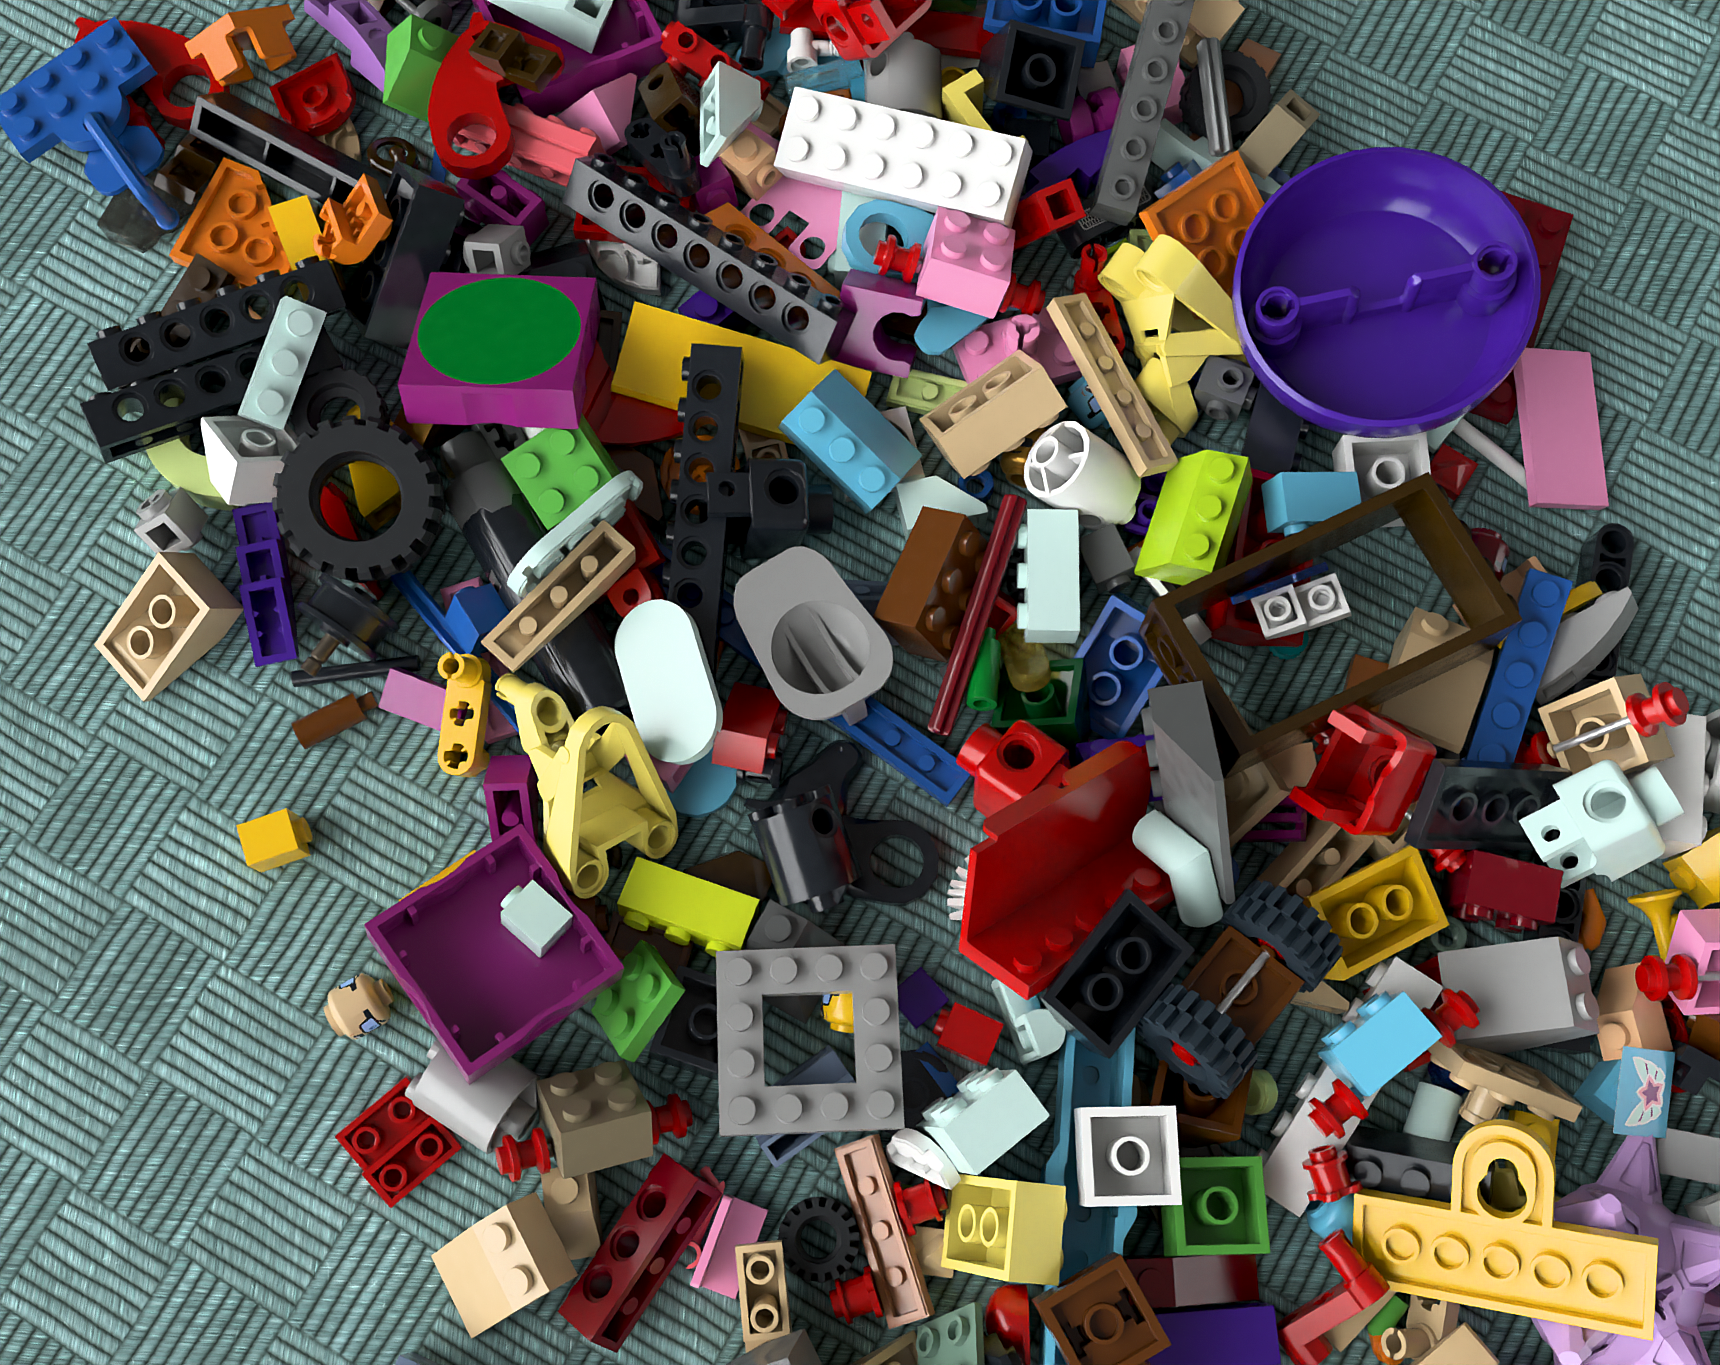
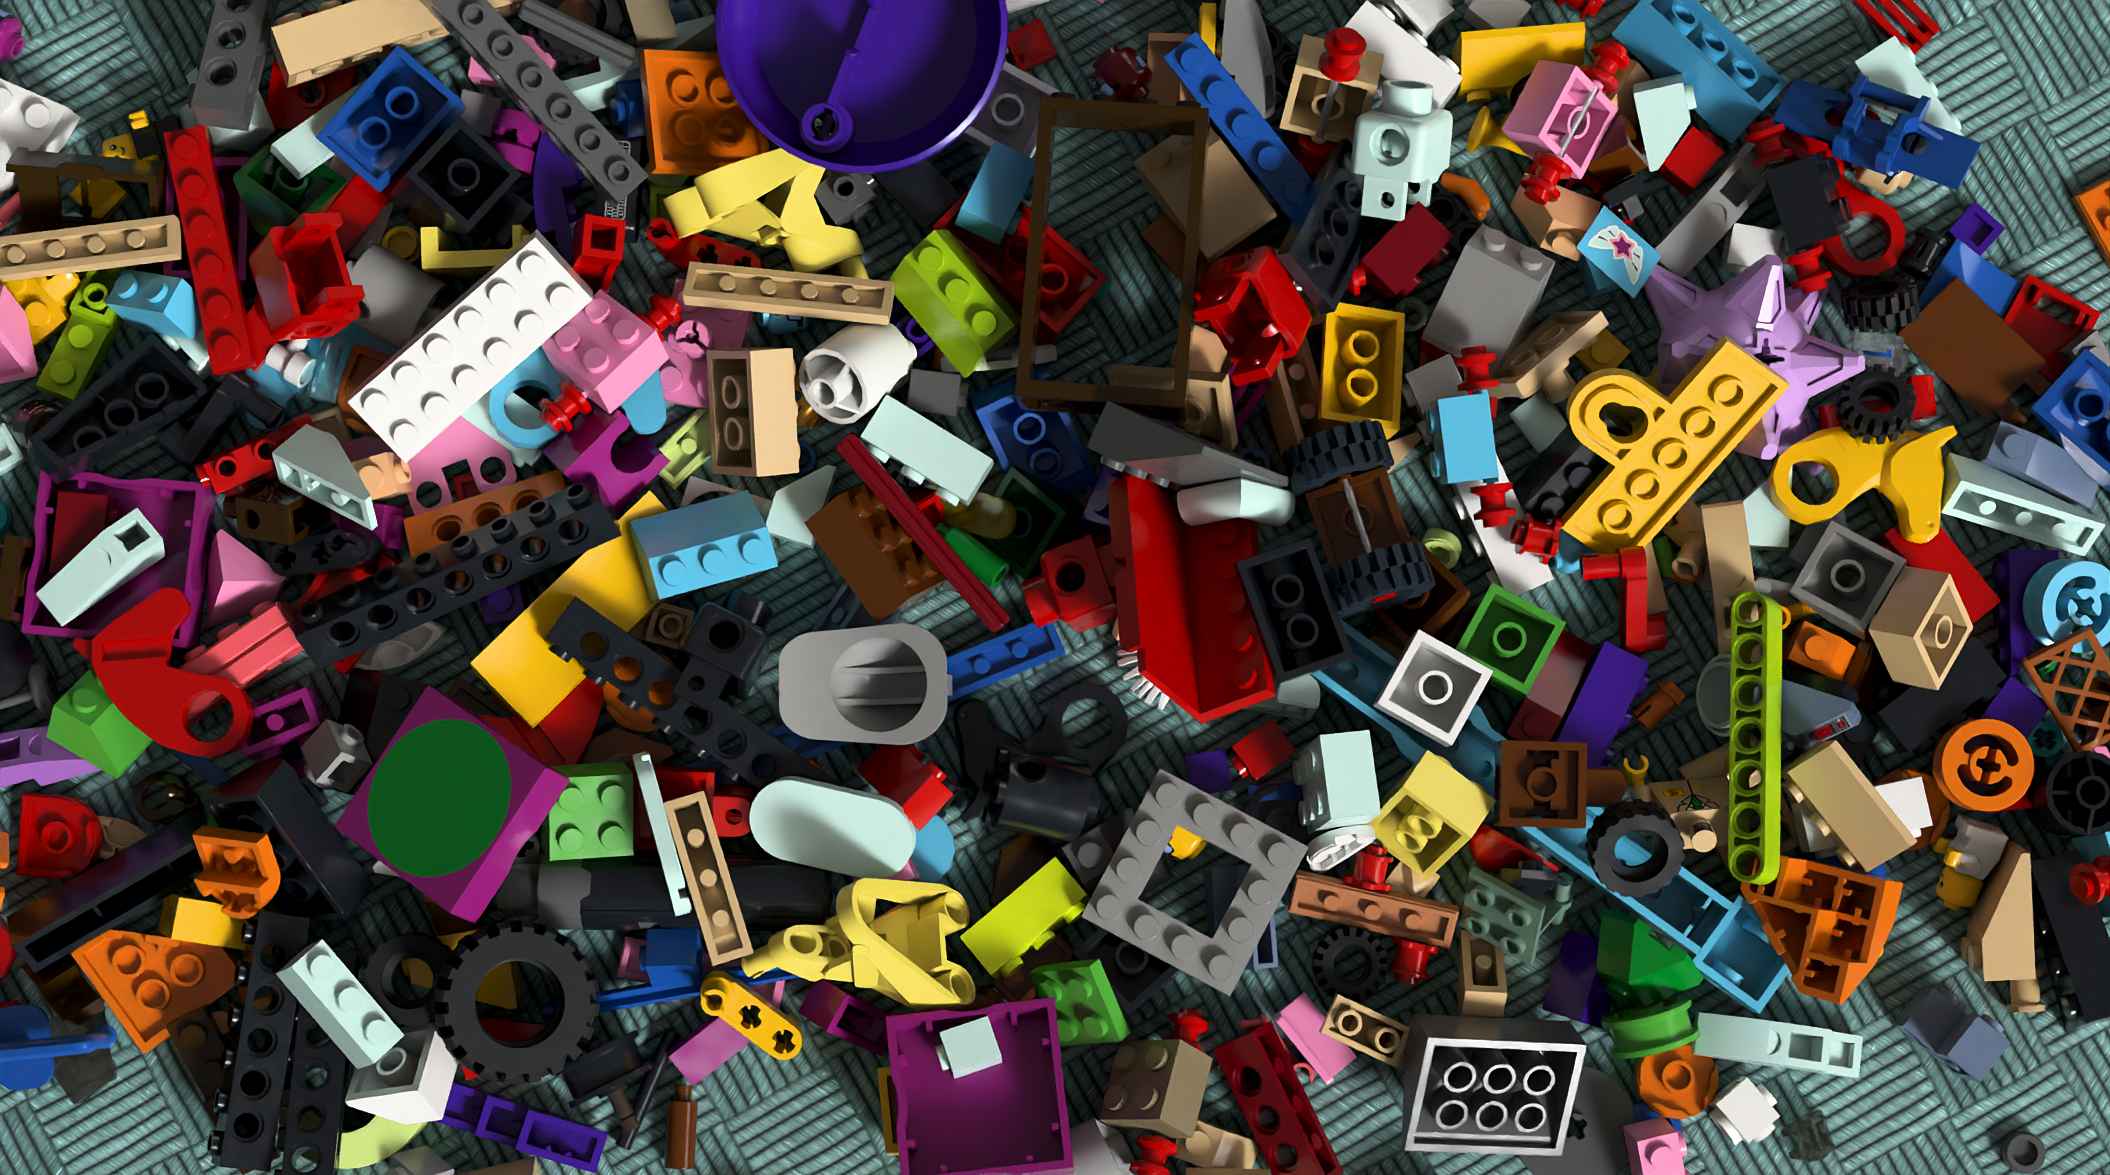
camera: 60 degrees left, 10 degrees up
(511, 57) = (154, 635): dark brown slope -> none
(1279, 583) = (1056, 275): clear blue piece -> none
(1301, 608) = (1082, 265): white slope -> none

